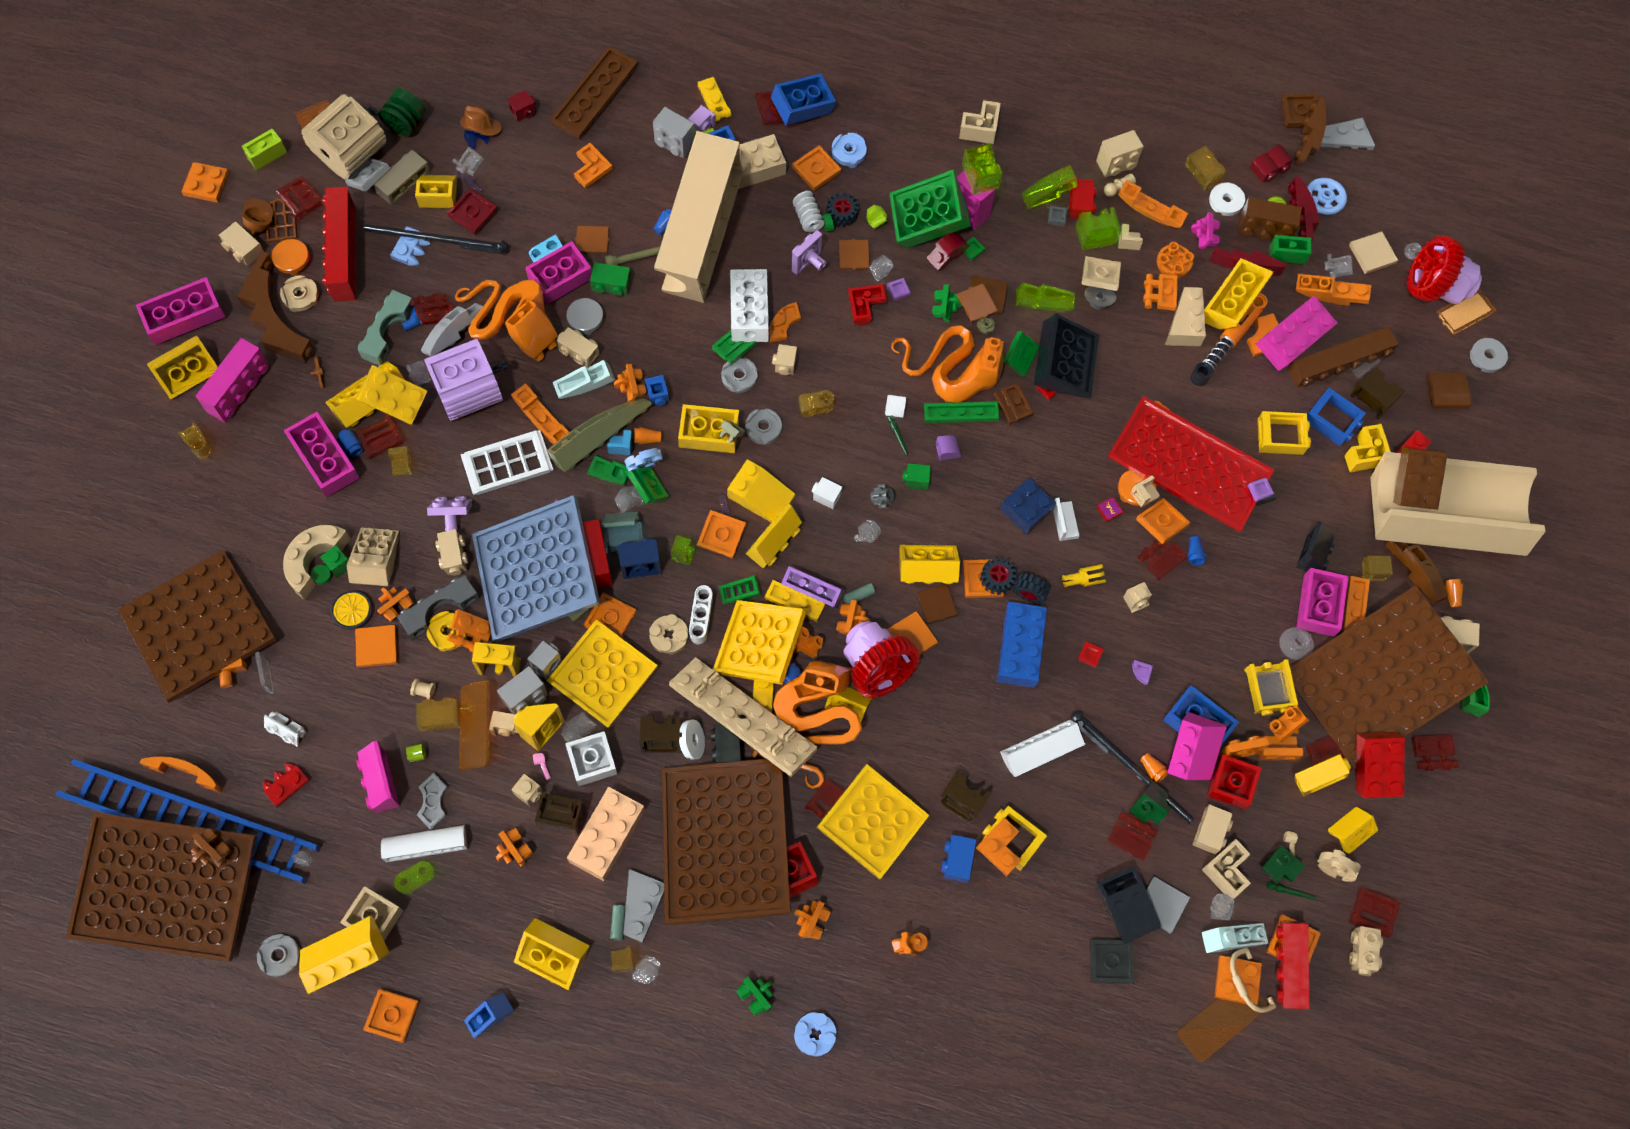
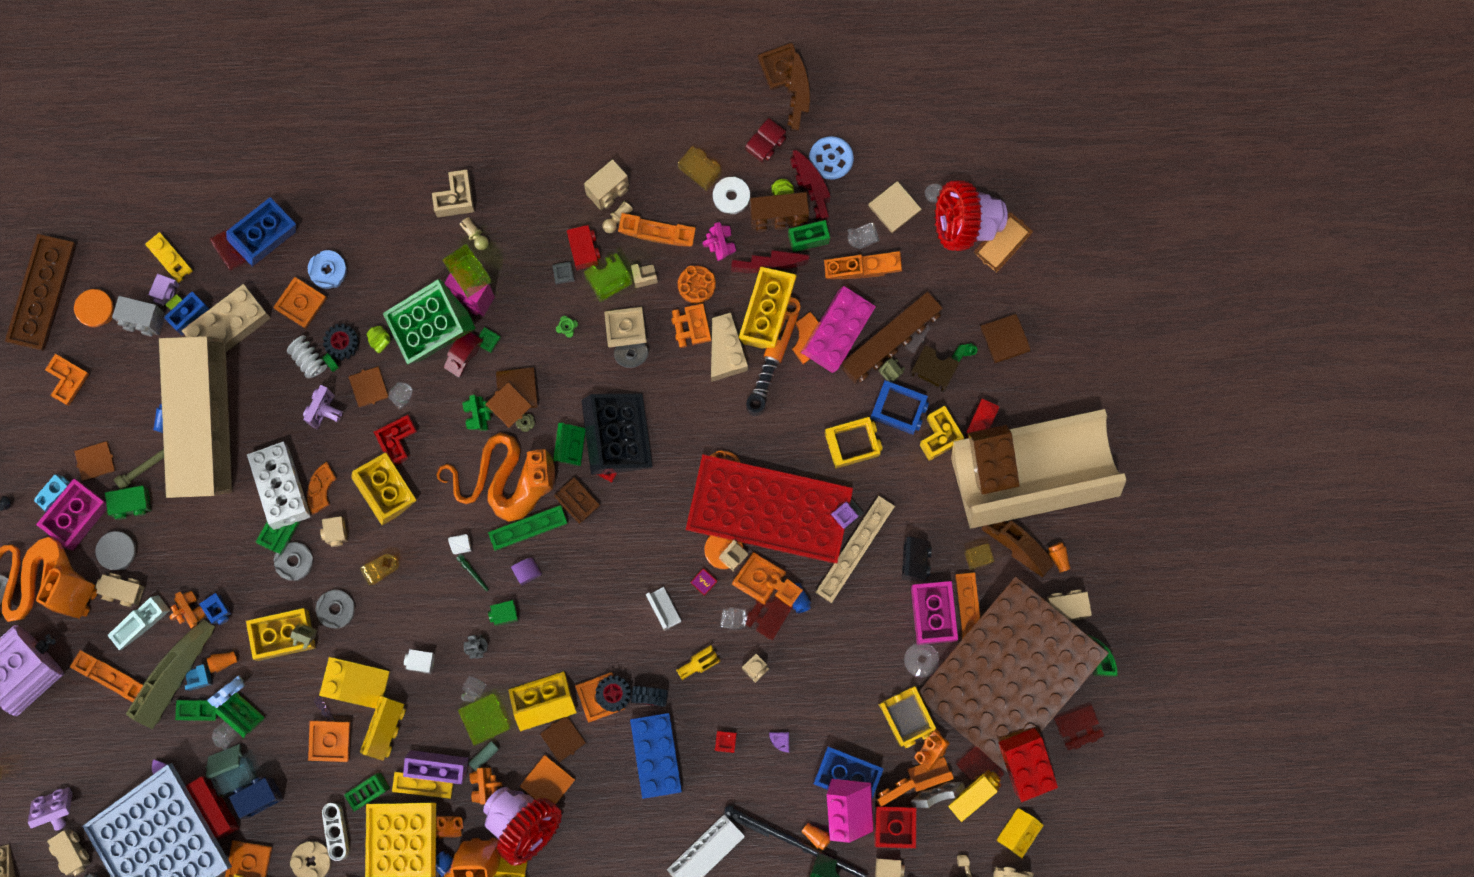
camera: 15 degrees left, 10 degrees up
(472, 472) = (60, 758): white piece -> none
(635, 118) = (94, 308): none -> orange tile
(682, 550) = (296, 771): clear neon green brick -> none
(841, 337) = (383, 488): none -> yellow slope
(869, 562) = (484, 719): none -> clear neon green plate
(898, 289) = (425, 411): medium lavender tile -> none
(1028, 506) = (622, 608): dark blue brick -> none
(1044, 297) = (576, 372): clear neon green slope -> none
(1049, 255) = (567, 331): none -> bright green plate
(1050, 187) = (546, 247): clear neon green slope -> none
(1129, 548) = (733, 618): none -> clear piece
(1187, 537) = (787, 591): none -> orange plate
(1260, 525) = (855, 549): none -> tan plate
(1278, 766) = (929, 797): none -> light grey tile
(1335, 382) = (891, 370): none -> olive tile
(1349, 134) = (835, 78): light grey wing -> none
(1411, 389) = (964, 350): none -> green arm
(1495, 348) = (1039, 274): light grey tile -> none

